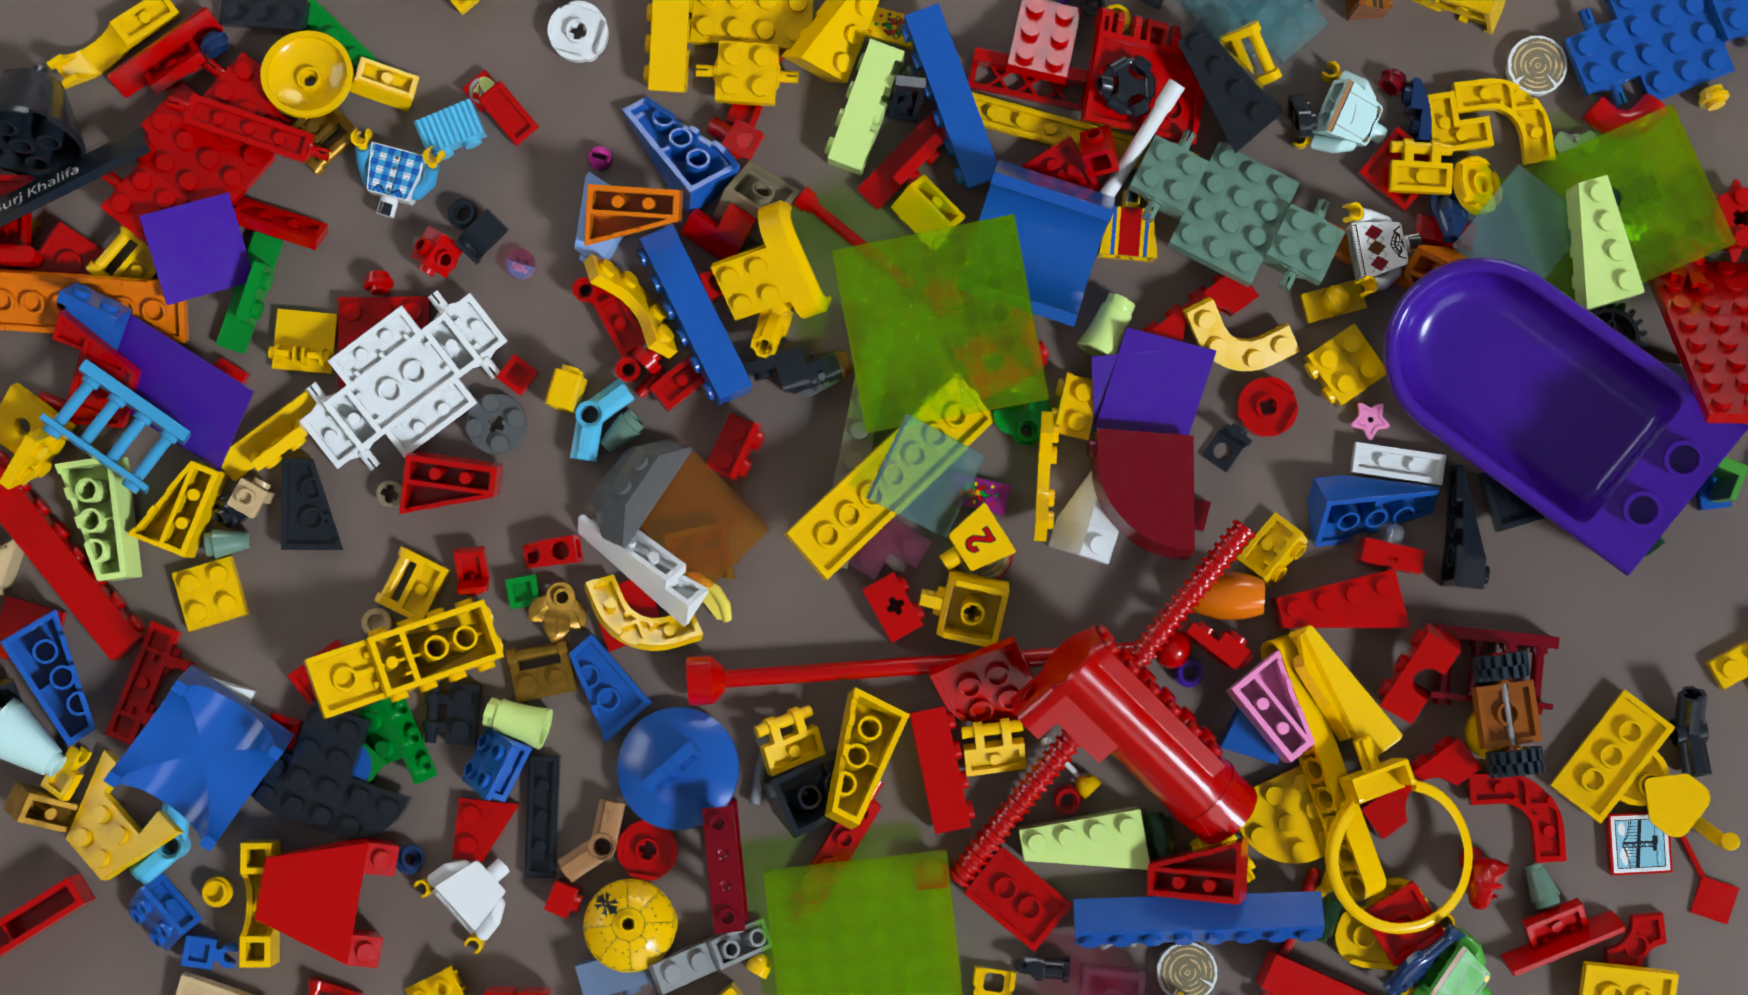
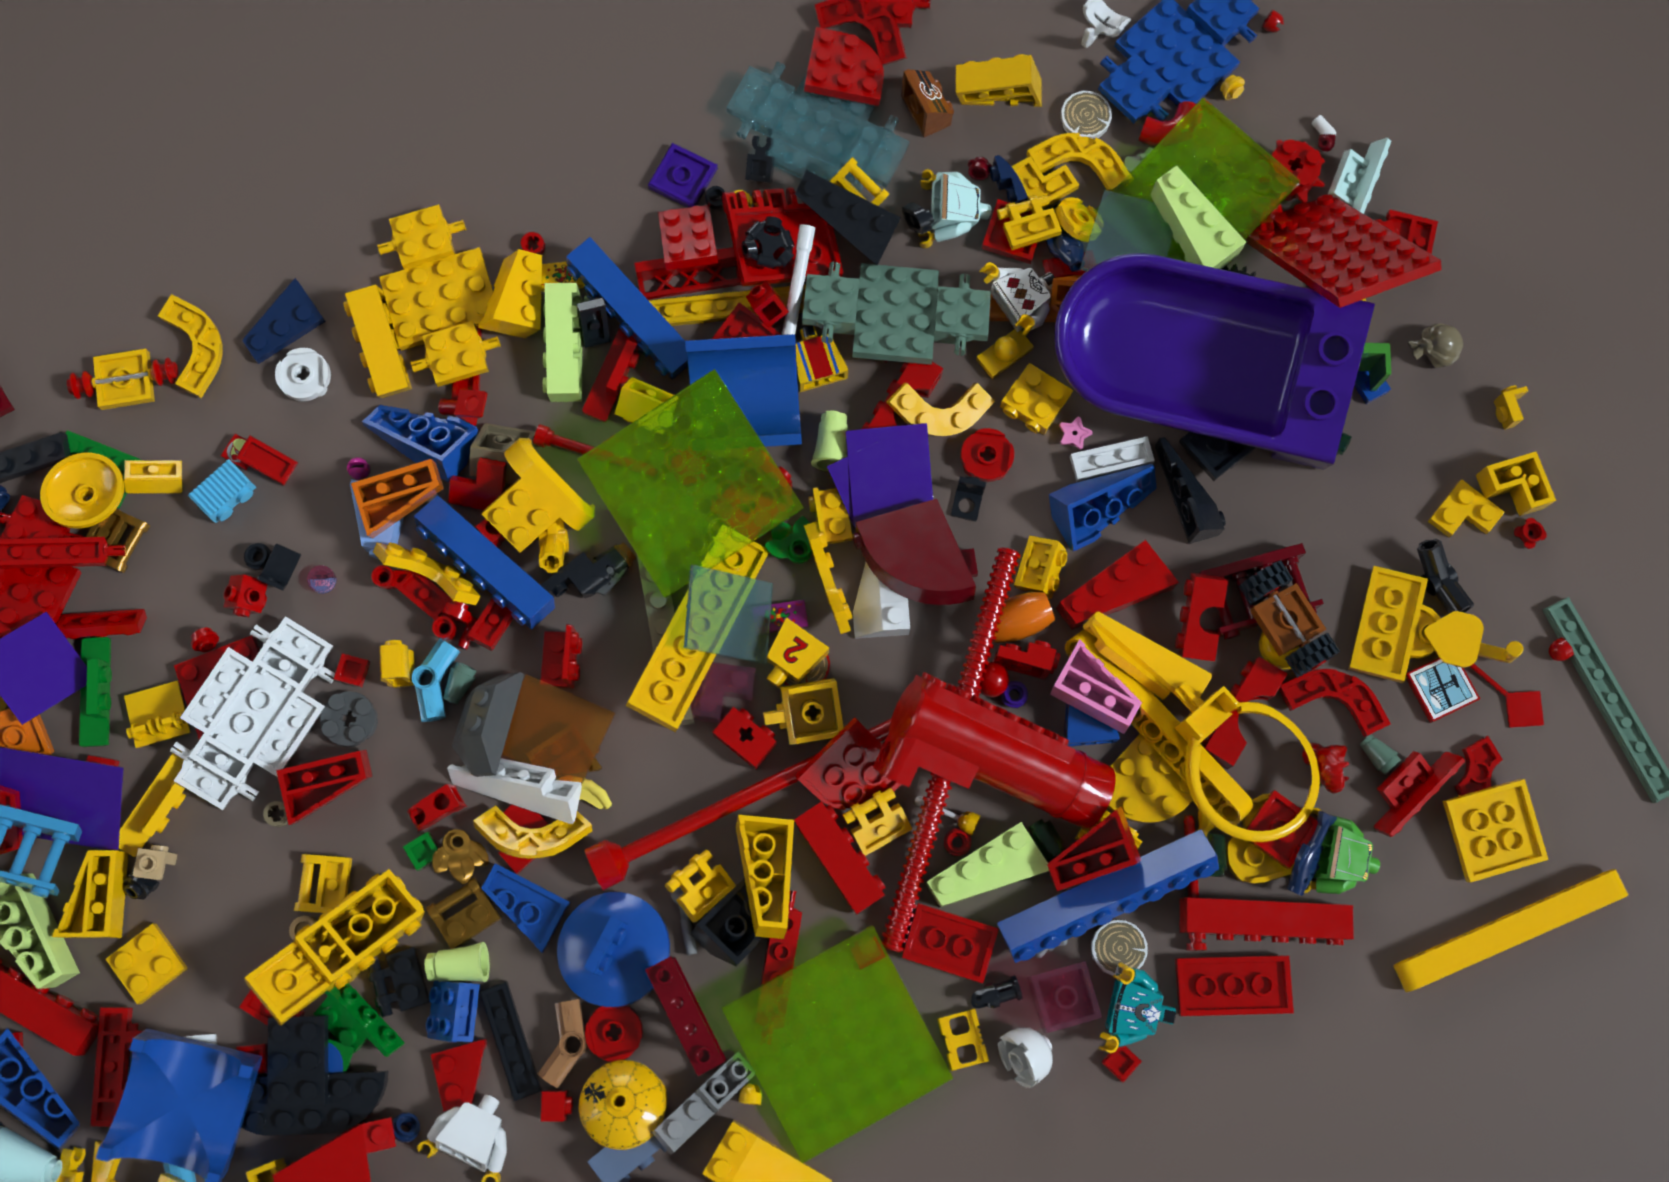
camera: 25 degrees left, 10 degrees down
(225, 542) = (144, 912): sand green cone -> none
(305, 509) = (206, 856): black wing -> none
(394, 172) = (186, 544): torso -> none
(472, 570) = (371, 850): red bracket -> none
(1391, 552) = (1136, 530): red piece -> none

